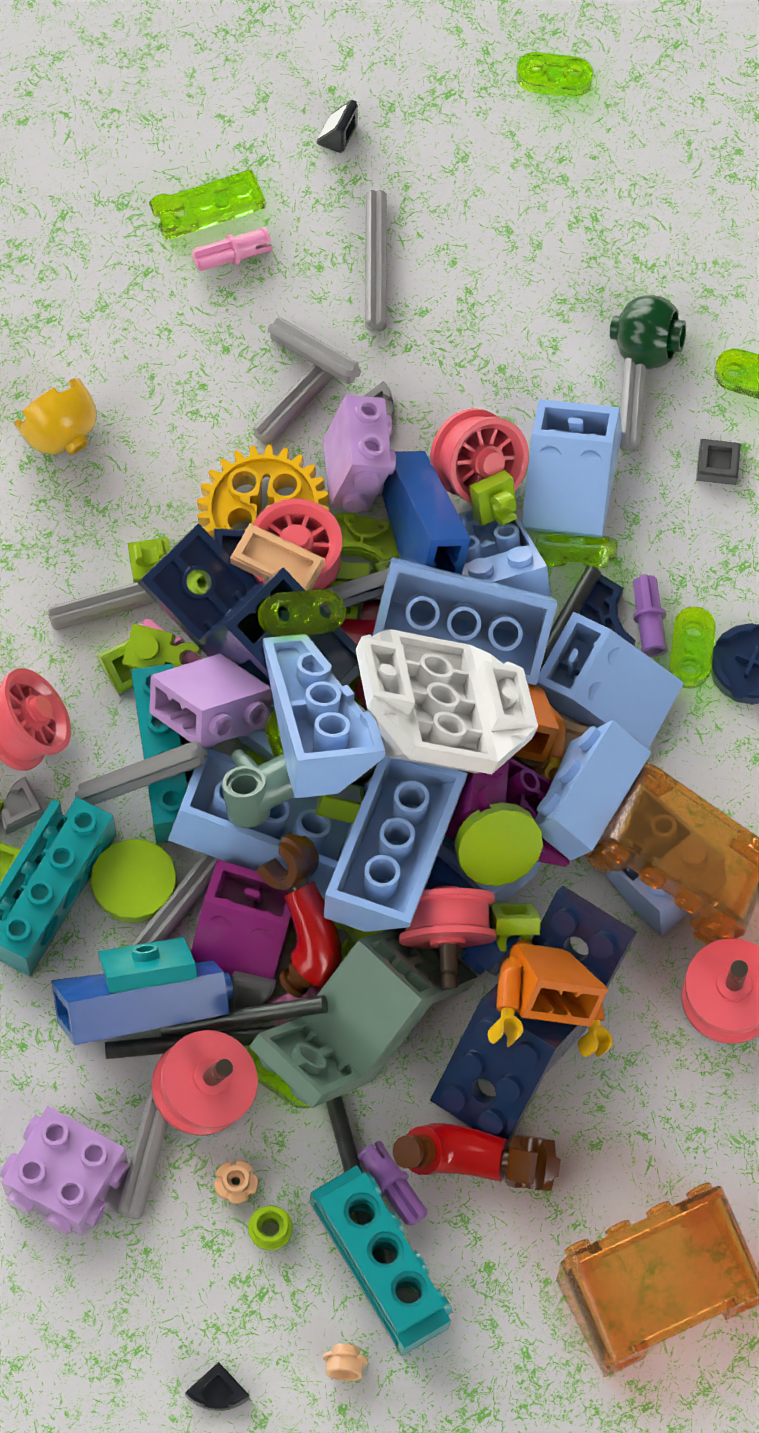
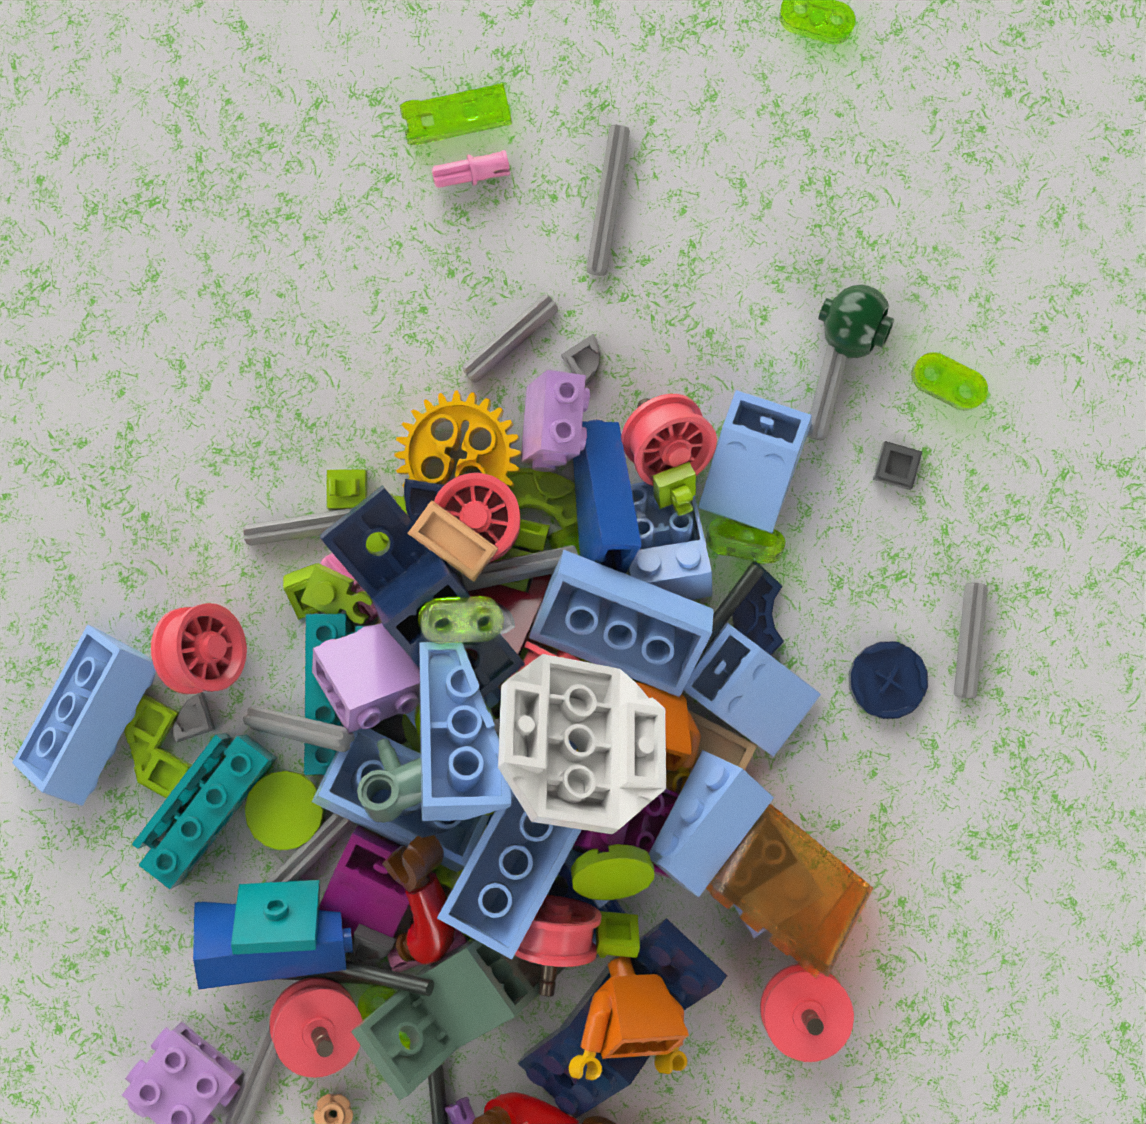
camera: 15 degrees right, 20 degrees up
(59, 420) = (278, 337): yellow cylinder -> none
(314, 350) = (531, 296): light grey axle -> none
(339, 127) = (595, 48): black slope -> none
(649, 615) = (802, 617): medium lavender axle -> none
(692, 650) = (837, 659): clear neon green plate -> none

